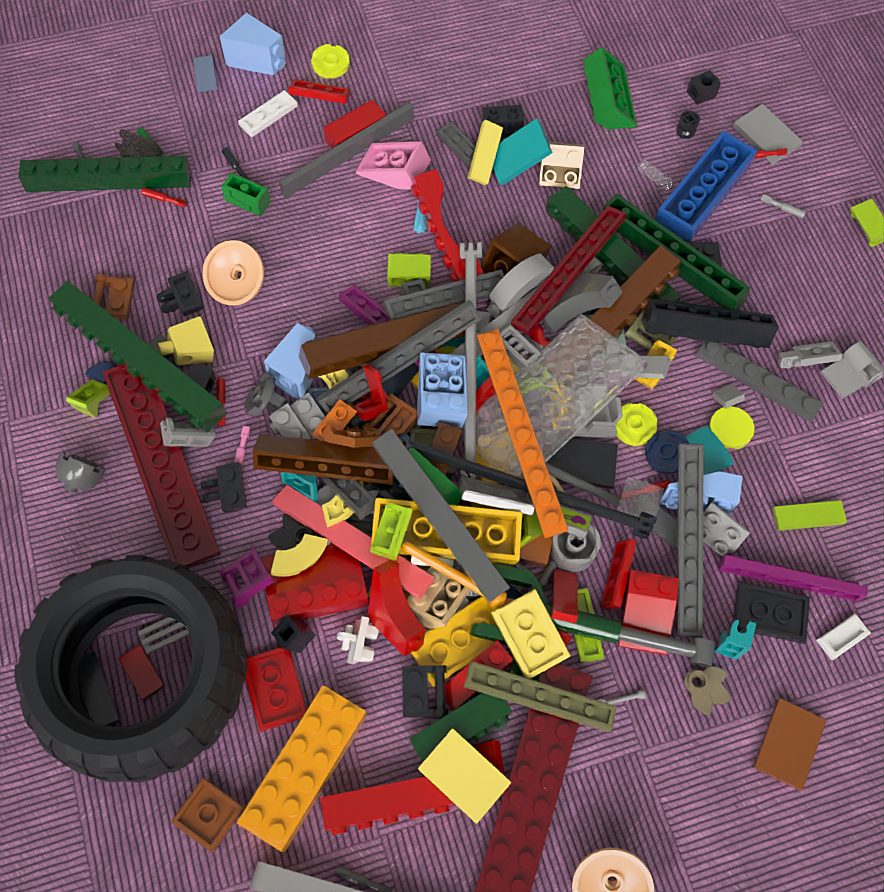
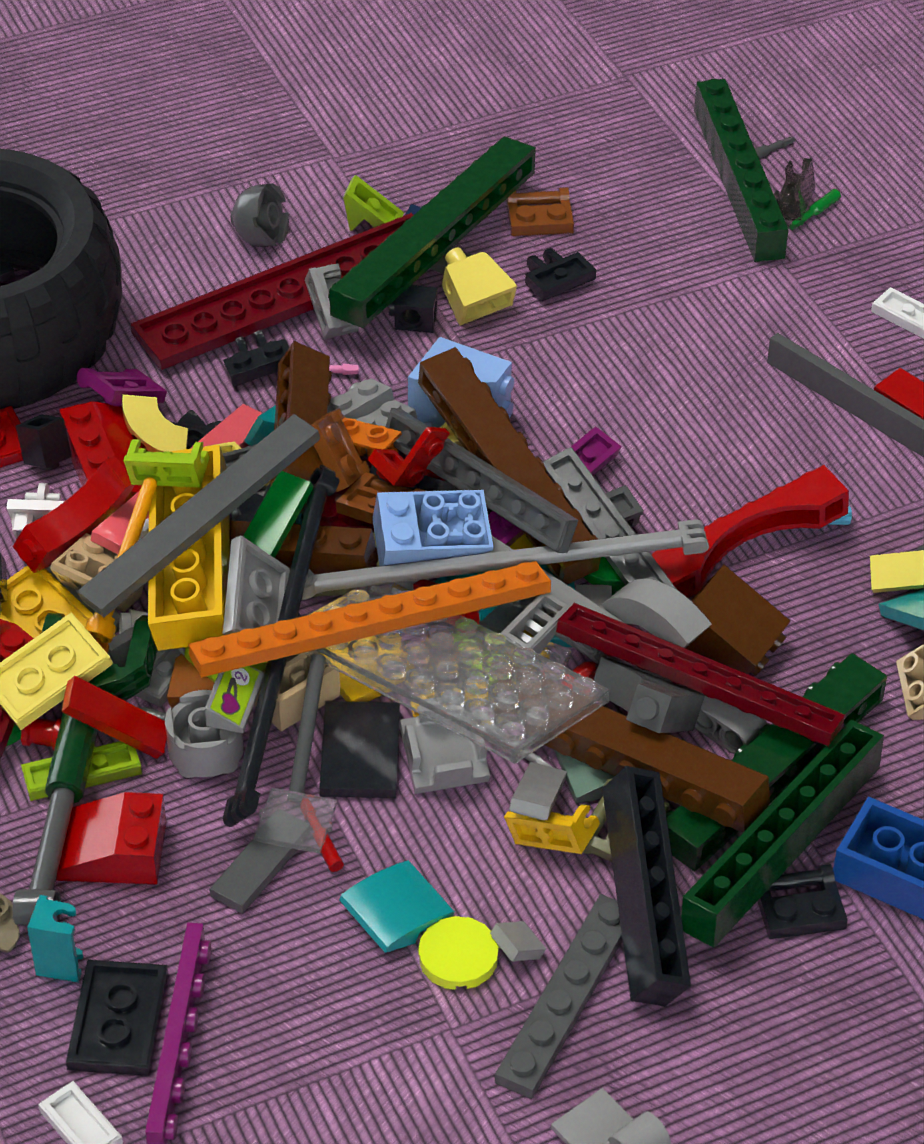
camera: 85 degrees right, 20 degrees down
(162, 197) = (724, 234): red piece -> none
(221, 396) = (395, 339): red piece -> none
(222, 268) = (600, 310): light nougat dish -> none
(233, 162) = (809, 297): black piece -> none
(246, 194) = (745, 305): green brick -> none
(264, 397) = (398, 362): dark grey tile -> none
(394, 163) = (869, 468): bright pink slope -> none
(408, 268) = (664, 499): lime brick -> none
(618, 574) = (174, 797): red tile -> none
(636, 425) = (442, 818): neon yellow tile -> none
(663, 451) = (390, 855): dark blue tile -> none
(690, 541) = (219, 858): dark grey tile -> none
(718, 488) = (310, 898): light blue slope -> none
(722, 531) = (248, 926): light grey hinge -> none
(809, 515) = (303, 1073): lime tile -> none
(810, 355) = (631, 1068): light grey hinge -> none

